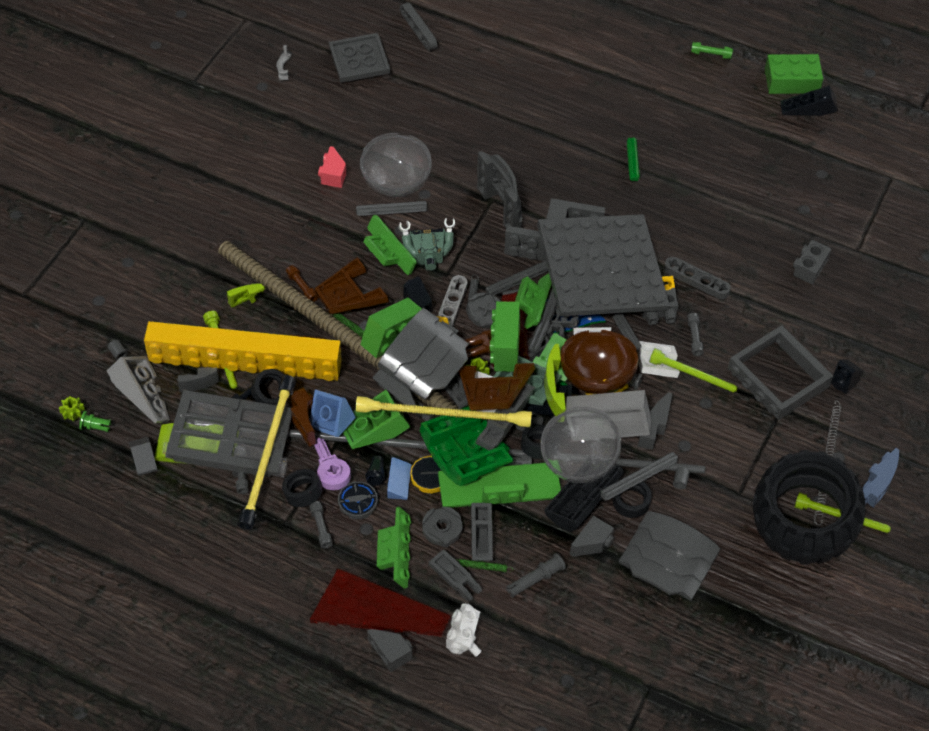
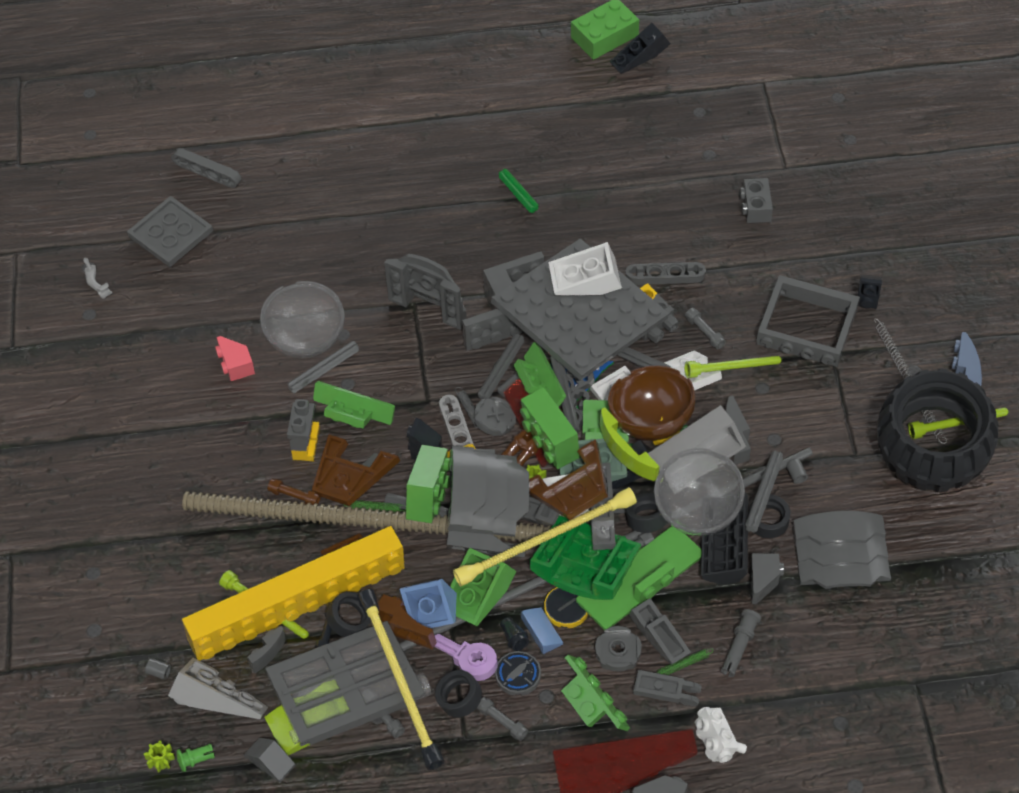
camera: 30 degrees left, 0 degrees up
(244, 293) = (243, 536): lime slope -> none
(337, 243) = (303, 431): none -> dark grey hips
(429, 245) = (392, 382): sand green torso -> none
(623, 239) = (586, 272): none -> white slope
(697, 48) = (495, 49): bright green bar -> none

